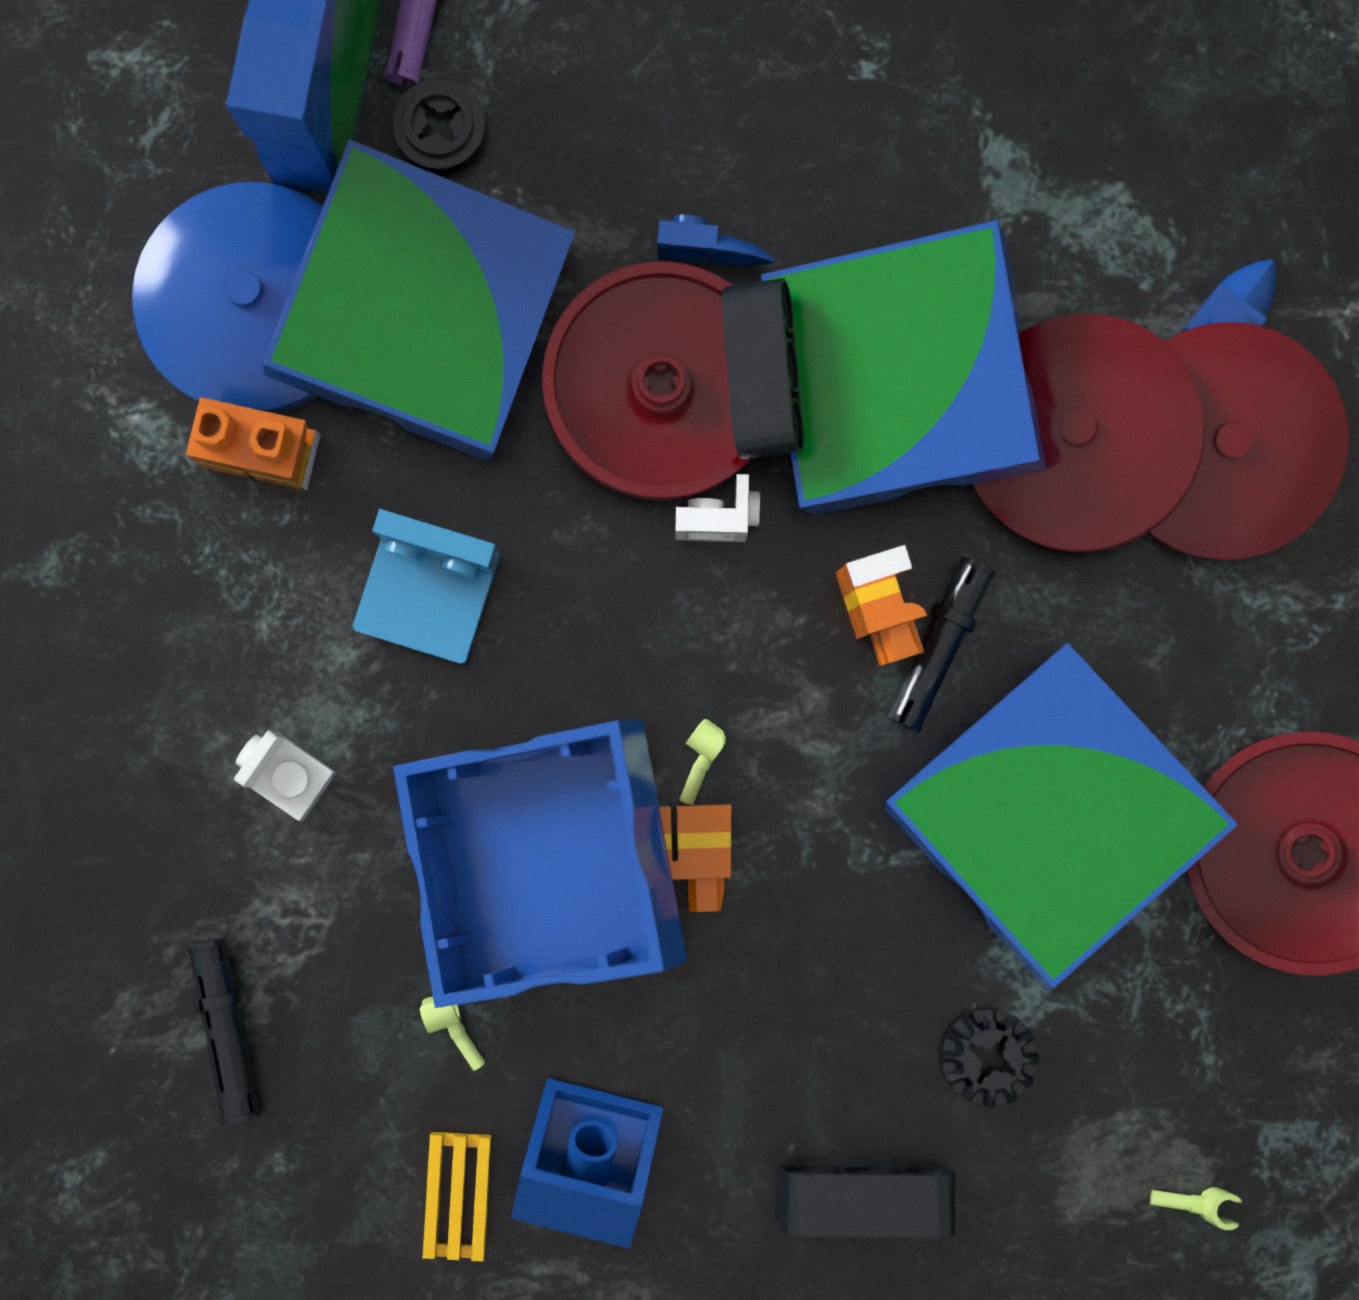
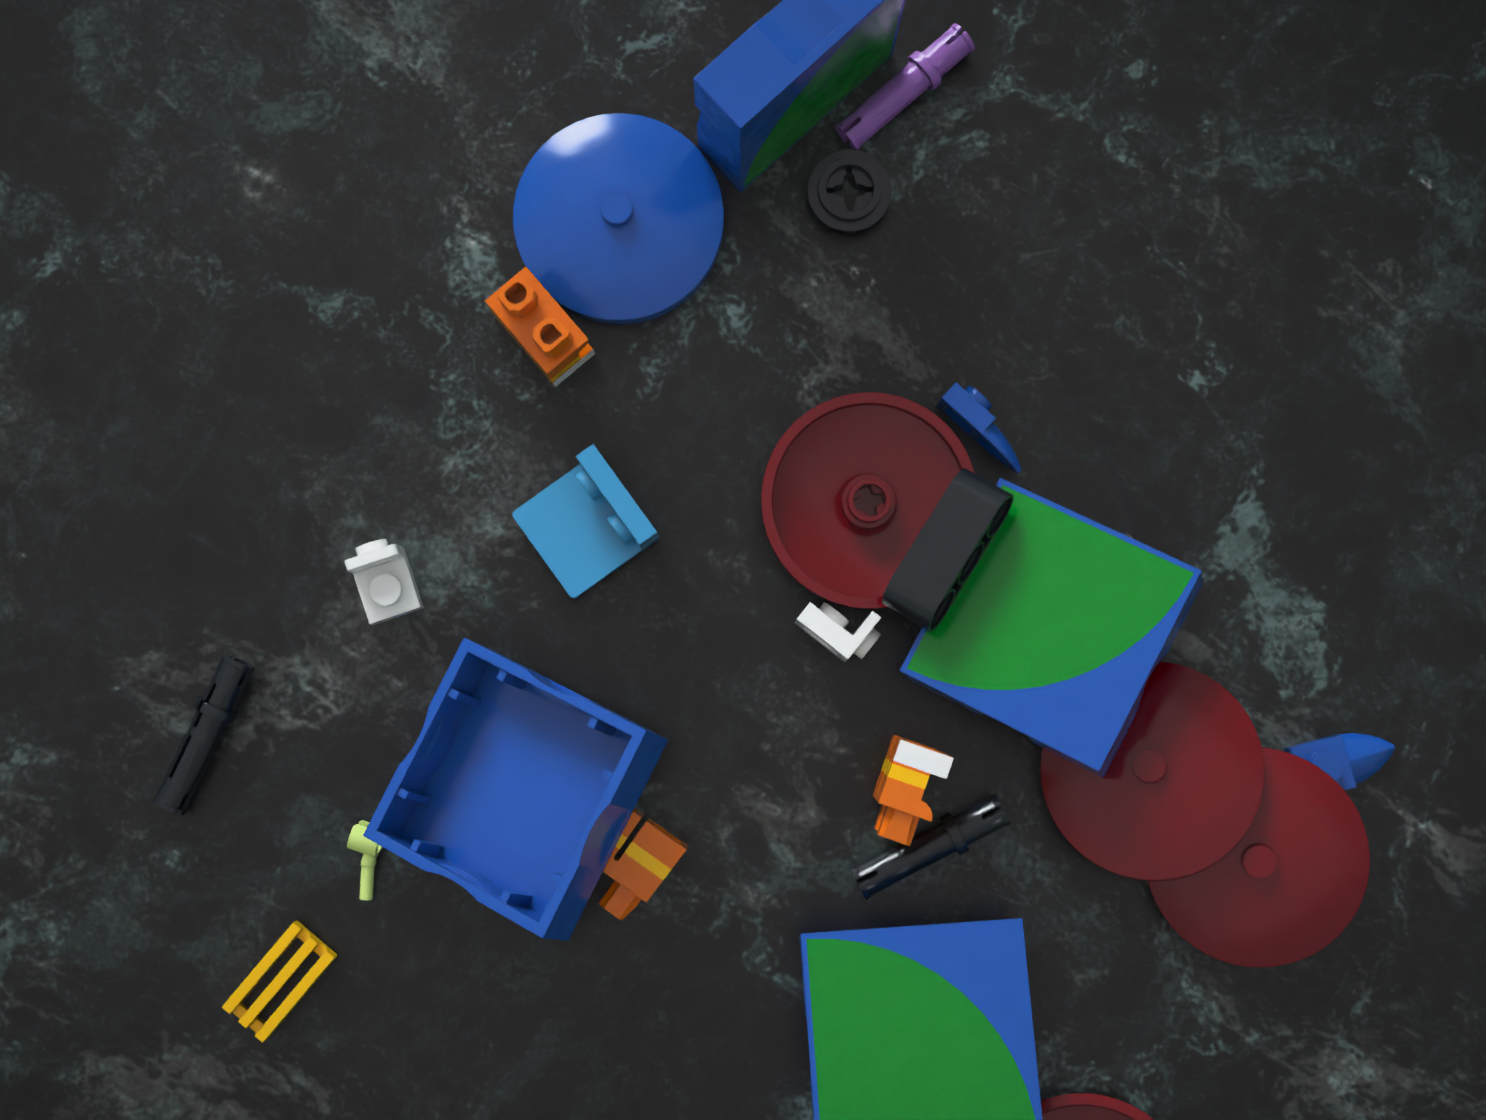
camera: 40 degrees right, 0 degrees up
(418, 301) = (736, 312): green tile -> none
(587, 1163) = (390, 1029): blue slope -> none
(708, 742) = (706, 789): yellowish green hand -> none

